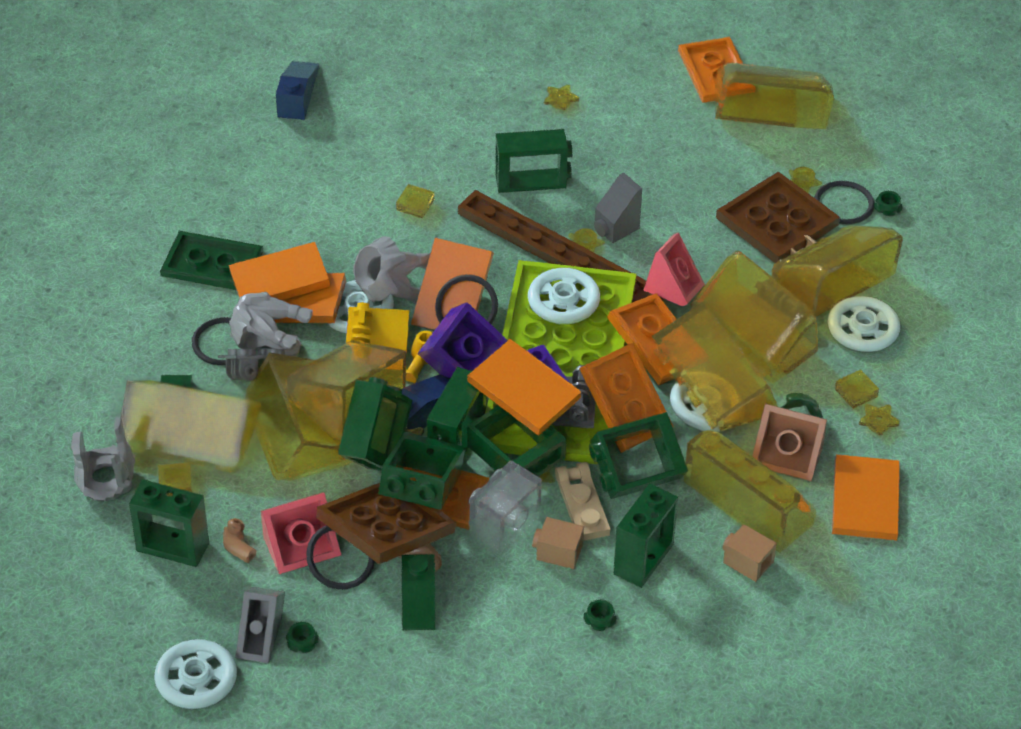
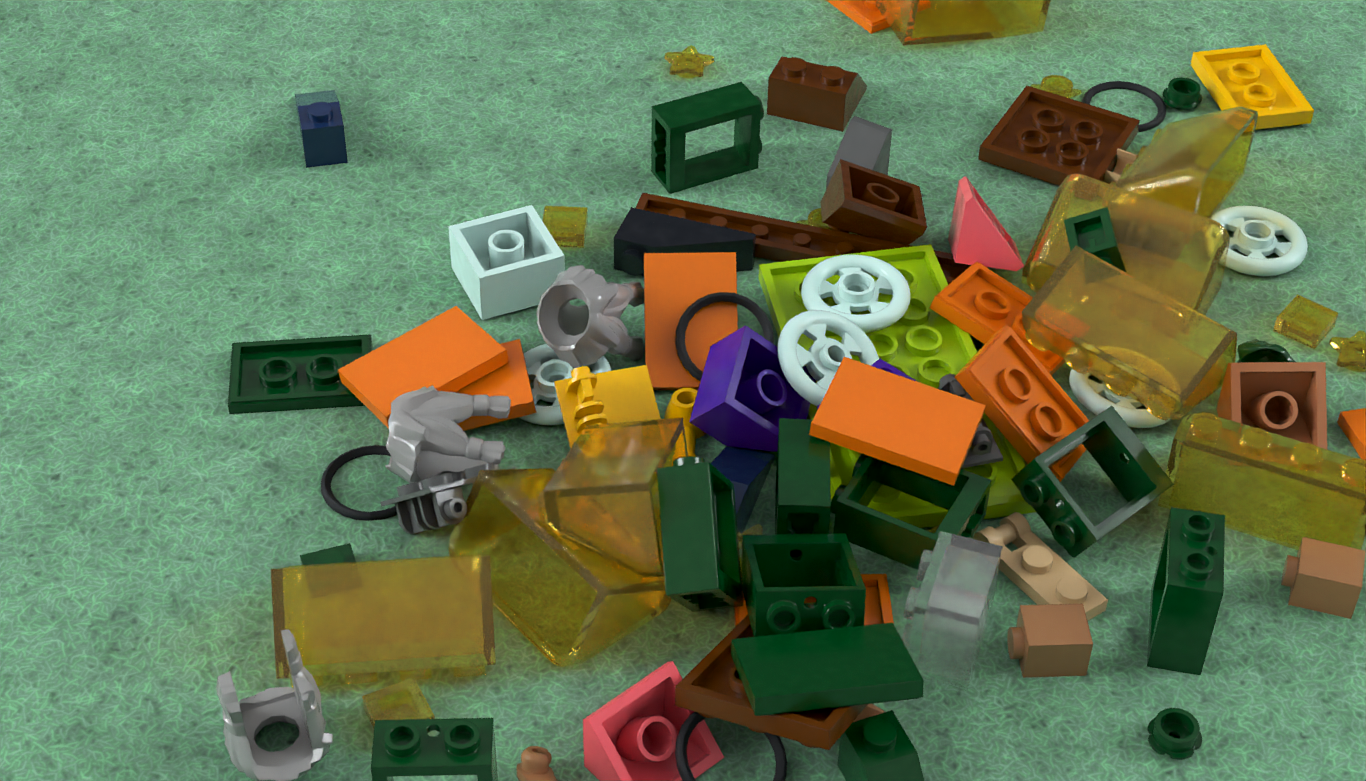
camera: 20 degrees left, 5 degrees down
(361, 216) = (505, 260): none -> light aqua brick
(401, 520) = (826, 669): none -> dark green tile
(471, 228) = (660, 233): none -> black slope
(515, 311) = (824, 354): none -> light aqua plate
(611, 235) = (873, 205): none -> reddish brown slope
(629, 142) = (813, 93): none -> reddish brown slope
(726, 301) = (1096, 235): none -> dark green bracket
(941, 210) = (1255, 81): none -> yellow plate

